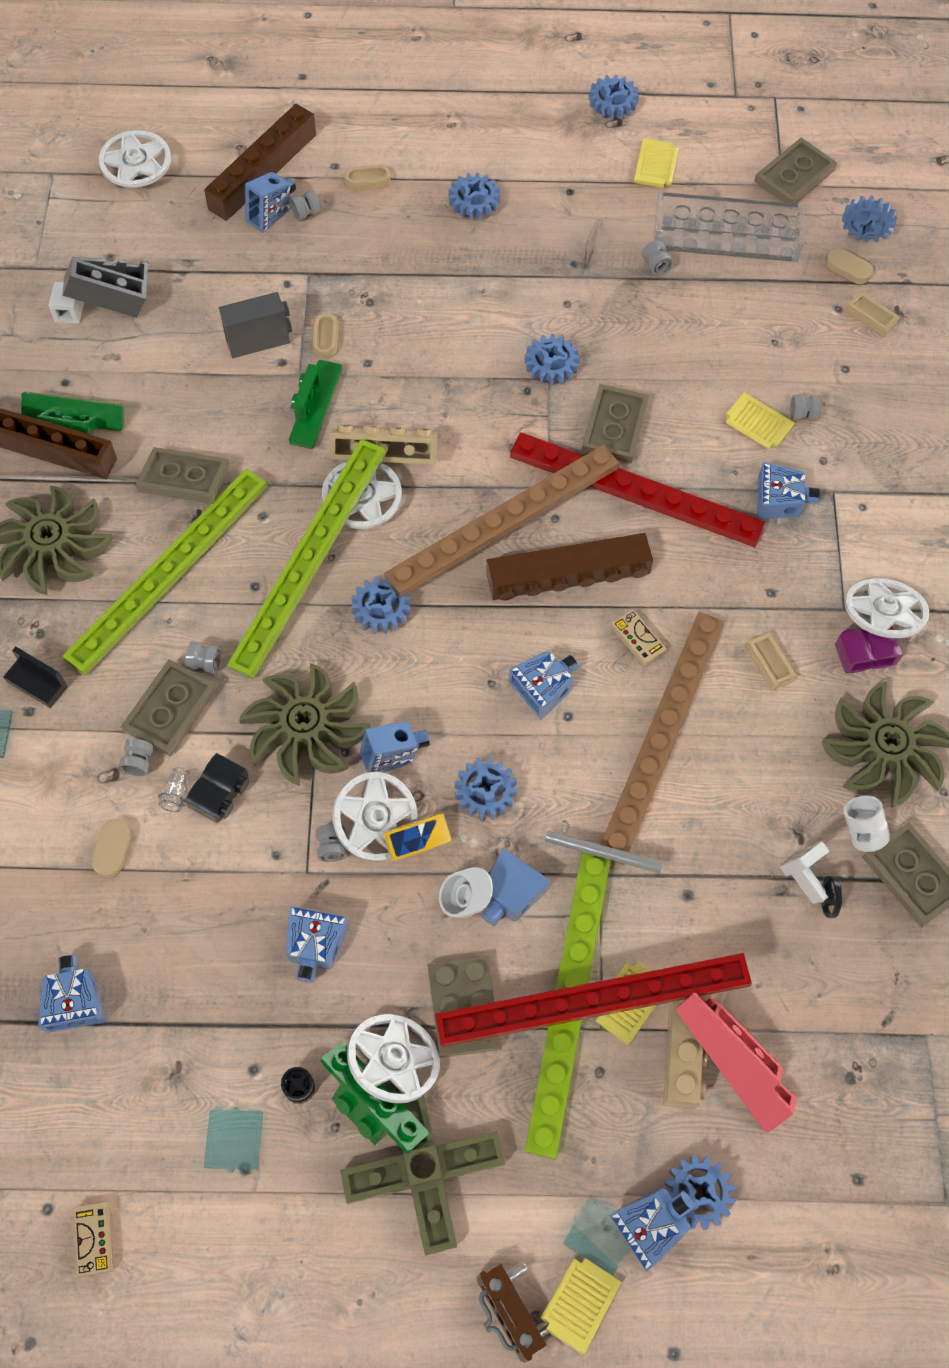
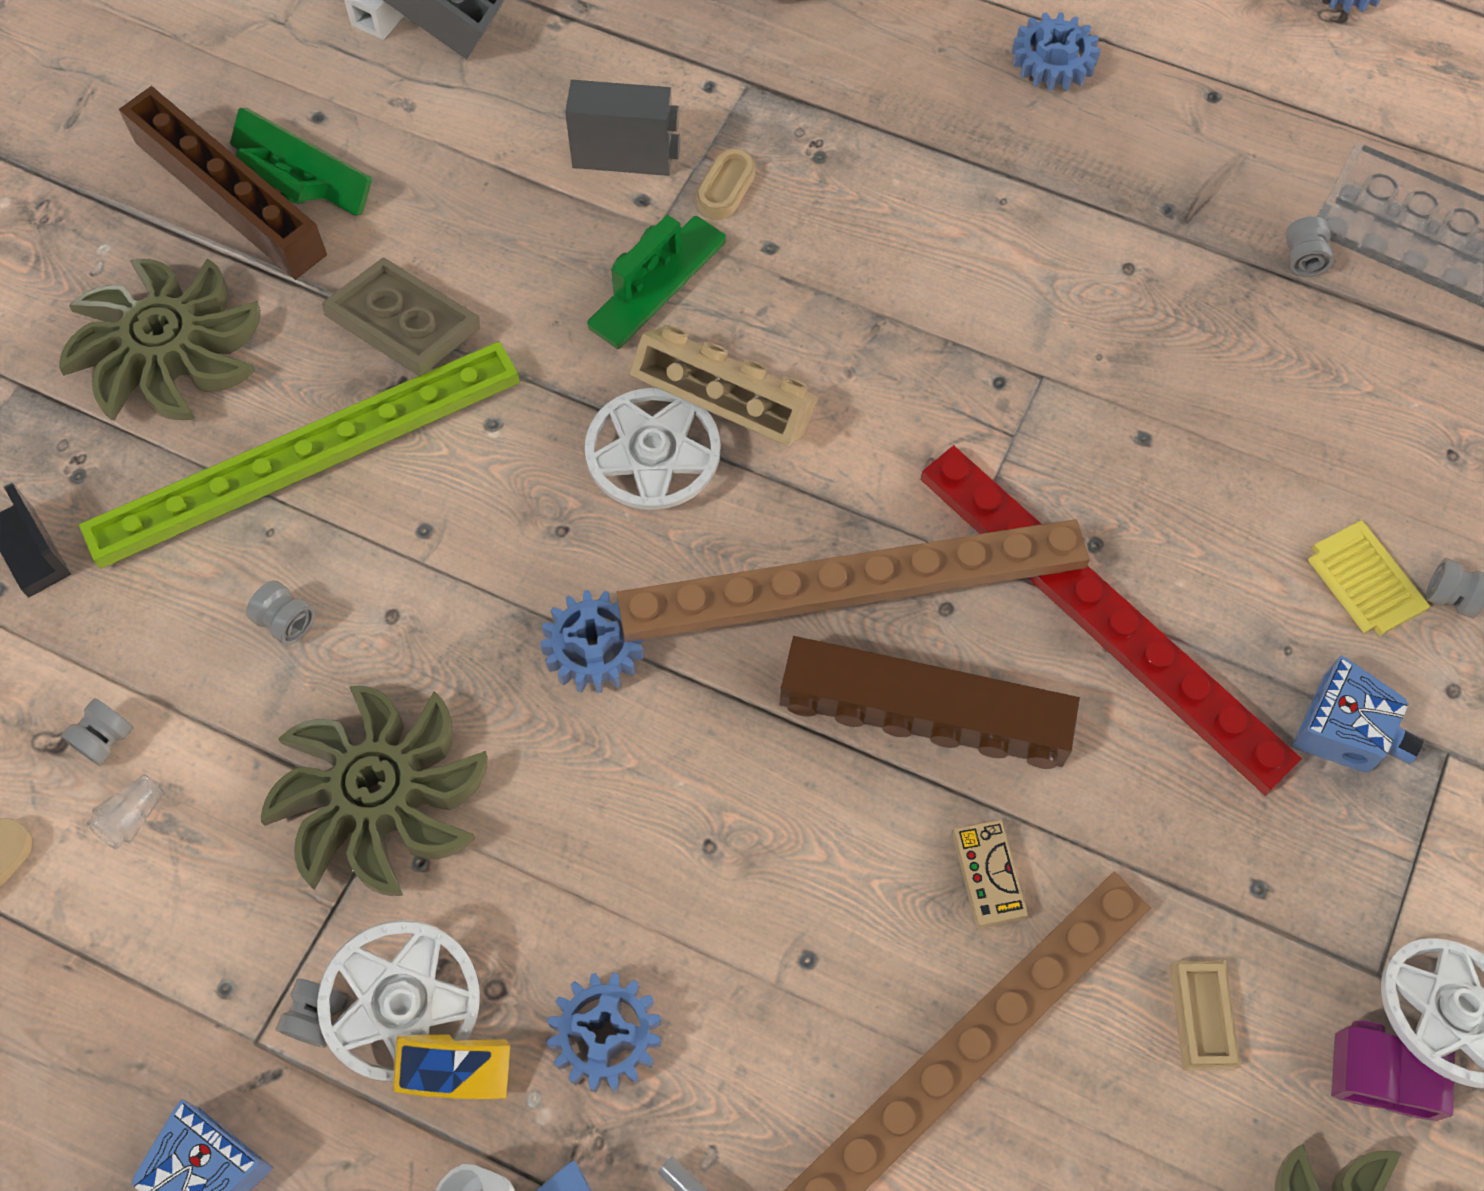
camera: 25 degrees right, 0 degrees up
(169, 707) = (189, 672): dark tan plate -> none
(217, 788) = (186, 838): black brick -> none
(306, 559) = (510, 520): lime plate -> none
(391, 746) = (466, 889): medium blue torso -> none
(543, 681) = (792, 884): medium blue torso -> none
(552, 359) = (1060, 347): medium blue gear -> none
(615, 422) = (1118, 489): dark tan plate -> none
(656, 163) = (1374, 99): light yellow window -> none

